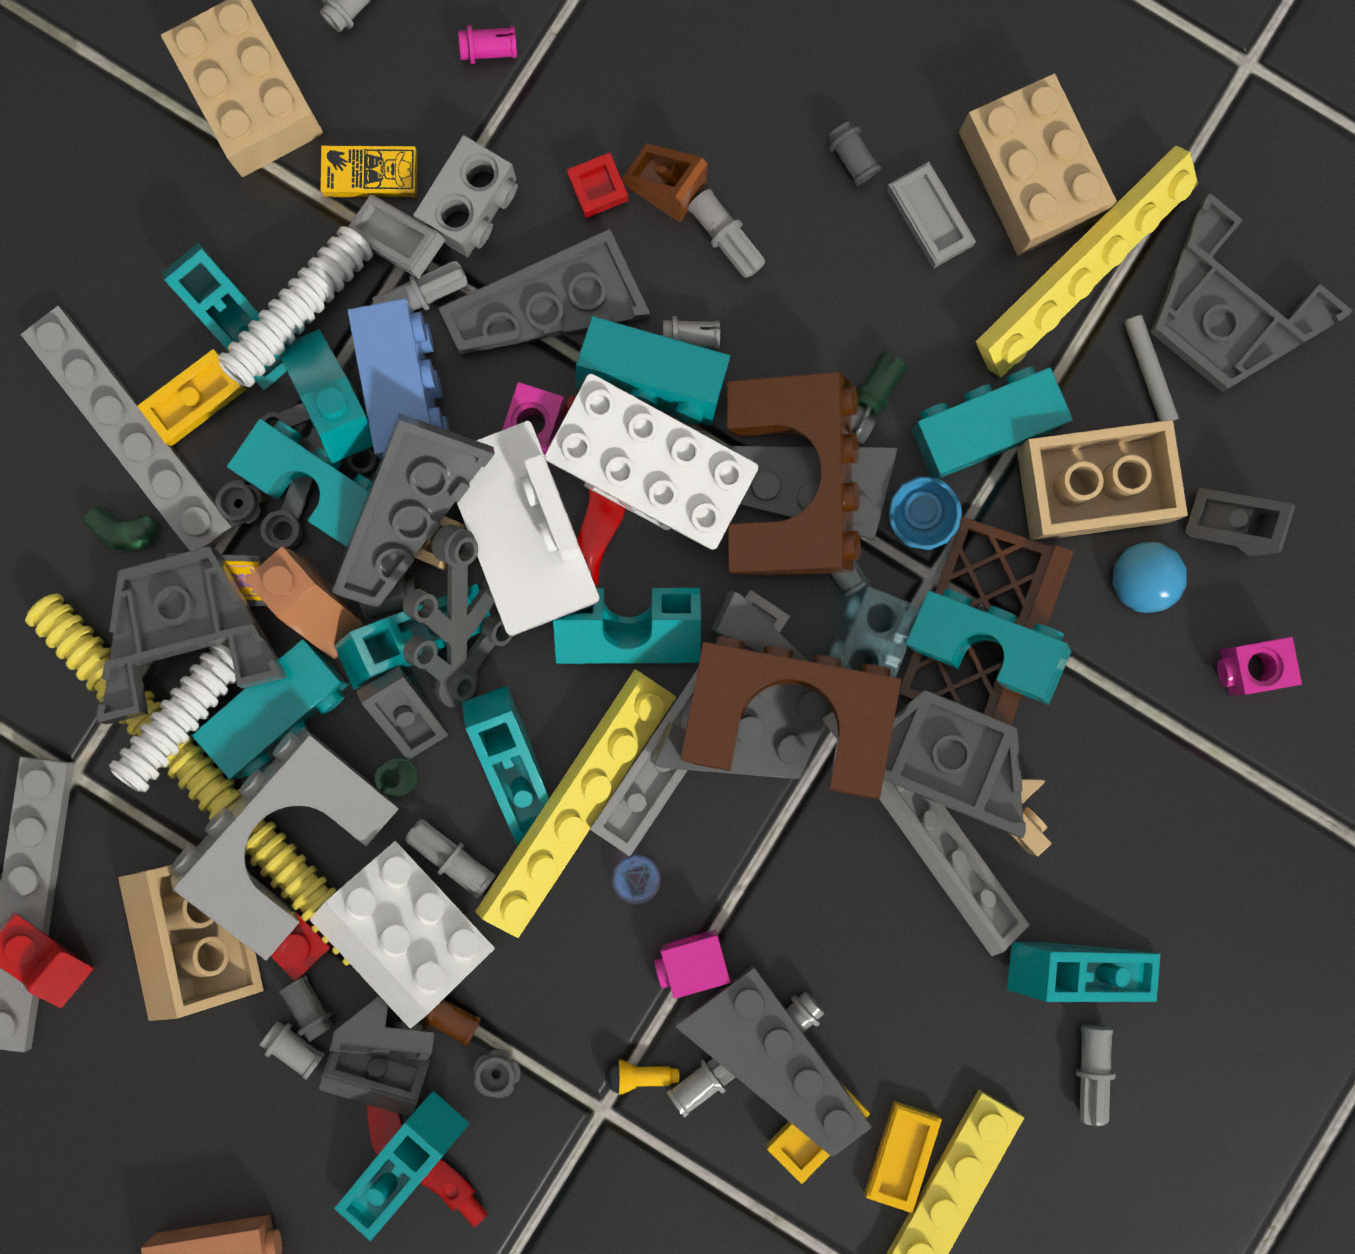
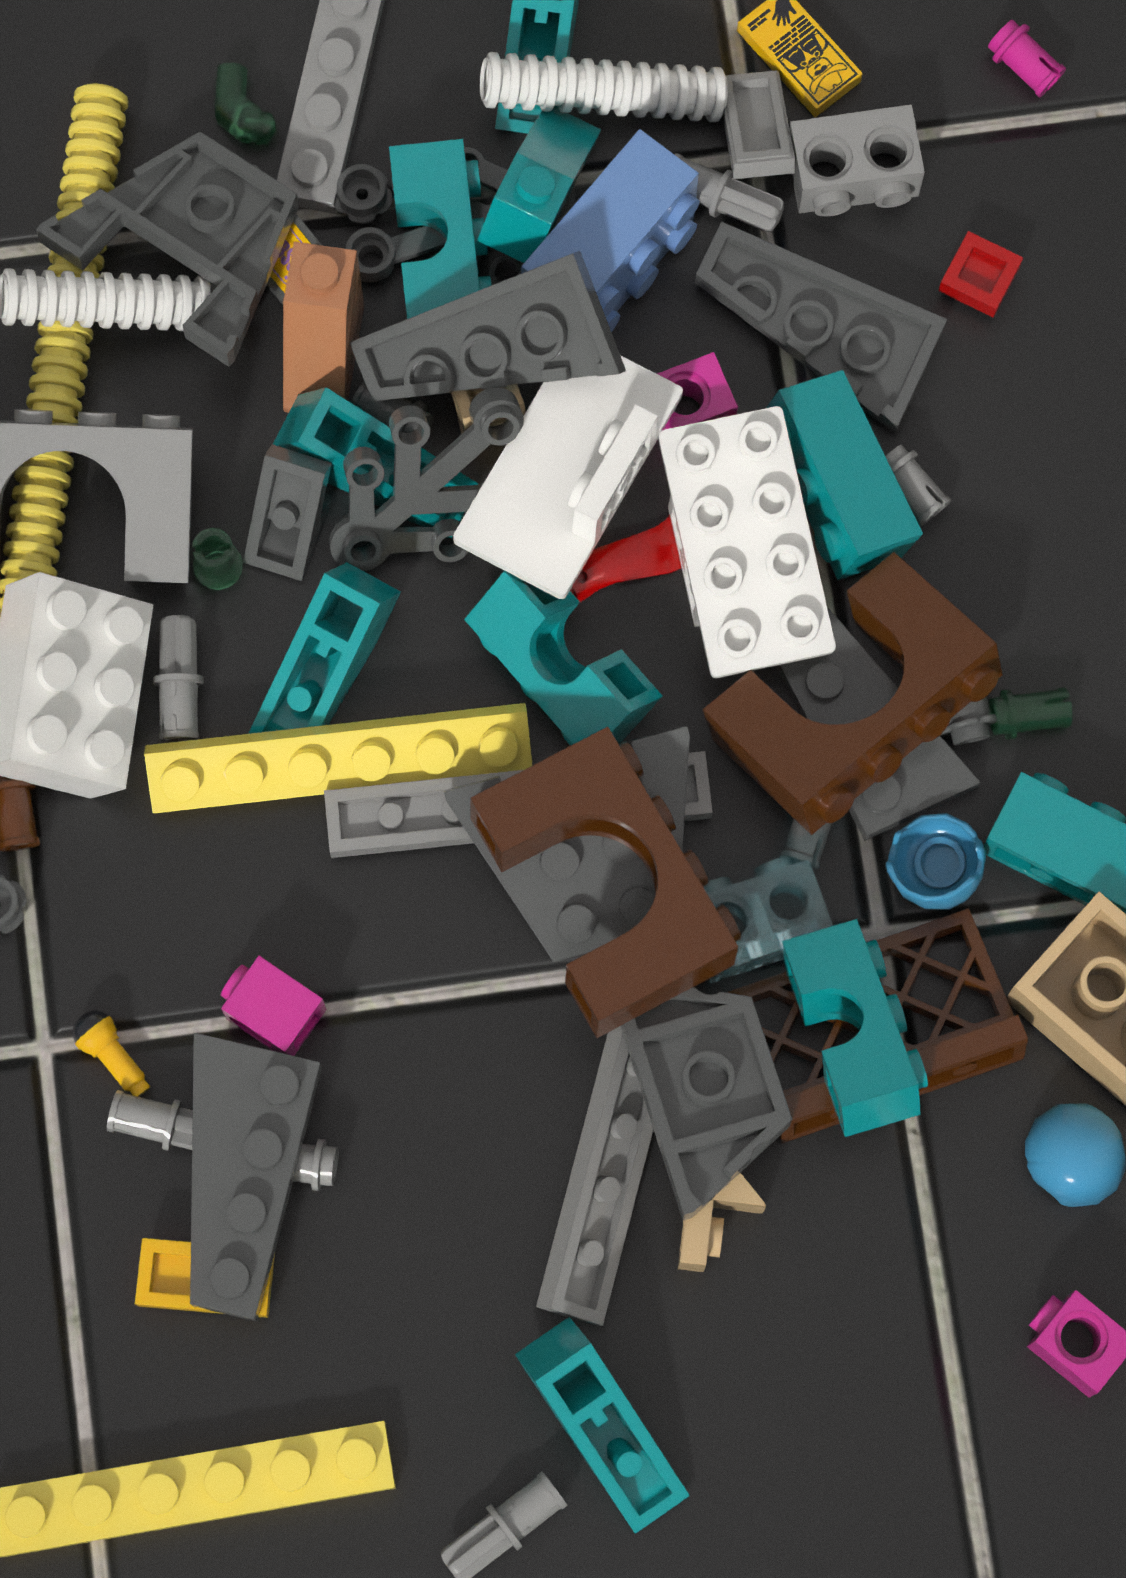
camera: 55 degrees right, 10 degrees down
(190, 399) = (425, 67): yellow plate -> none
(264, 714) = (176, 377): teal brick -> none
(636, 879) = (311, 884): tile -> none
(667, 178) = (1047, 337): dark orange slope -> none
(726, 233) = (1046, 437): light grey axle -> none
(902, 1156) = (248, 1396): yellow tile -> none

